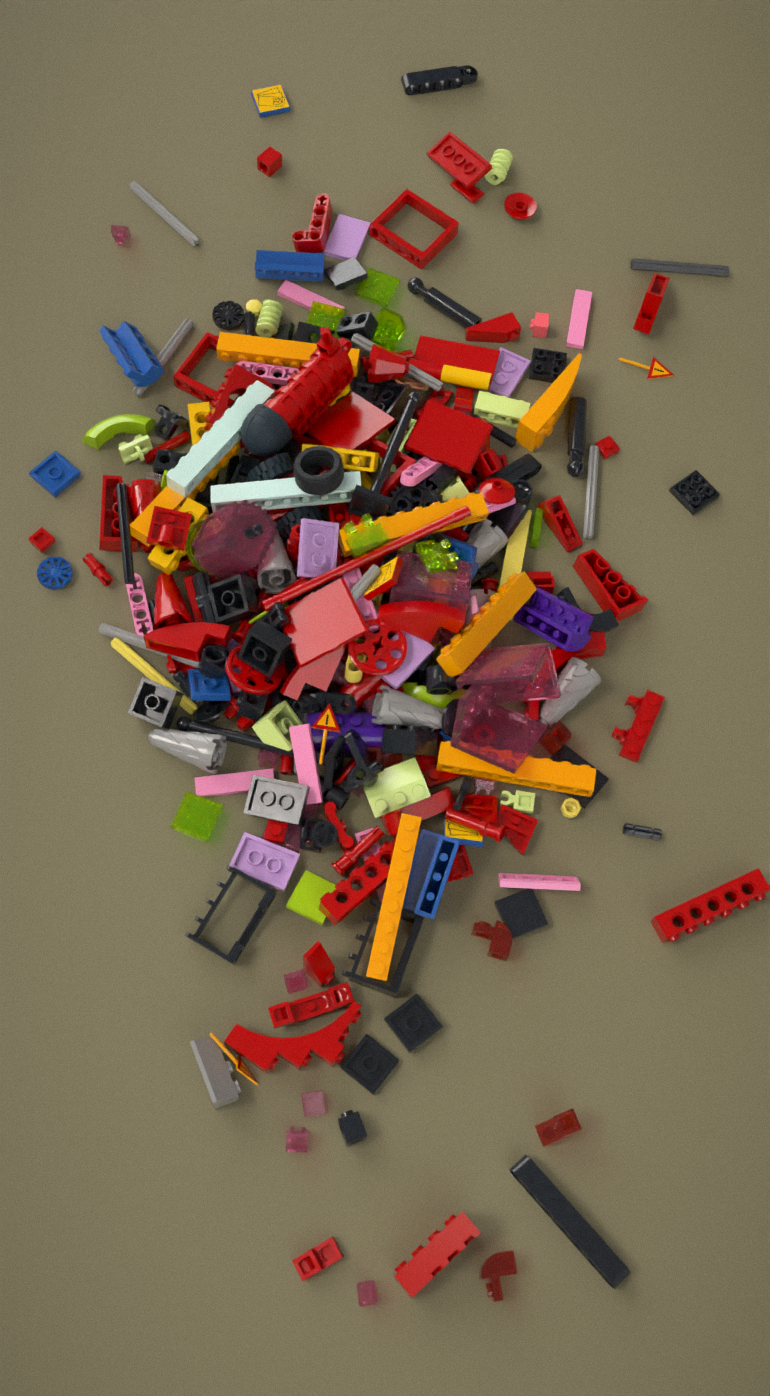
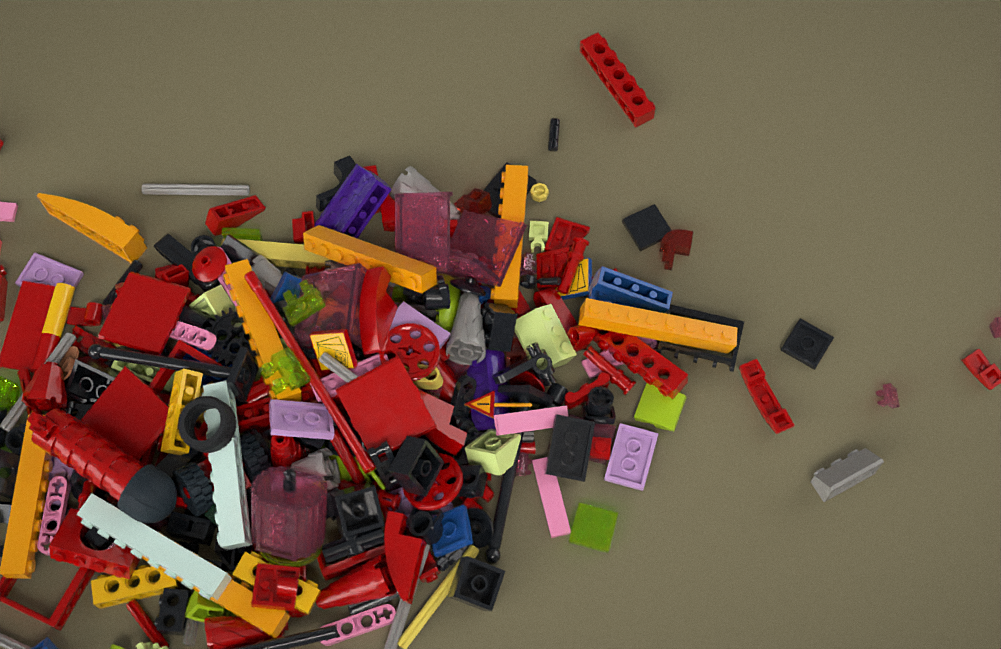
camera: 85 degrees left, 0 degrees up
(169, 419) = (113, 621): black tile -> none
(195, 748) = (521, 538): light grey cone -> none
(239, 945) = (724, 469): black hinge -> none
(240, 1065) = (830, 455): light orange piece -> none
(264, 1050) = (809, 404): red arch -> none
(295, 981) = (743, 415): clear pink slope -> none
(313, 1103) = (852, 387): clear pink slope -> none
(318, 965) = (729, 392): red slope -> none
(352, 1127) = (869, 351): black brick -> none
(413, 1023) = (764, 309): black plate -> none
(436, 1254) = (959, 272): red wedge -> none
(493, 1268) = (958, 229): clear red brick -> none
(500, 409) = (98, 275): yellowish green brick -> none
(539, 881) = (616, 214): bright pink tile -> none
(547, 365) = (39, 237): black tile -> none
(558, 1127) = (831, 183): clear red brick -> none
(570, 1221) = (906, 177): black beam -> none
(576, 435) = (132, 203): black piece -> none
(607, 447) = (141, 176): red plate -> none
(608, 586) = (306, 168): red wedge -> none
(635, 737) = (458, 141): red hinge -> none
(656, 369) = (45, 136): piece -> none
(694, 492) = (193, 100): black tile -> none

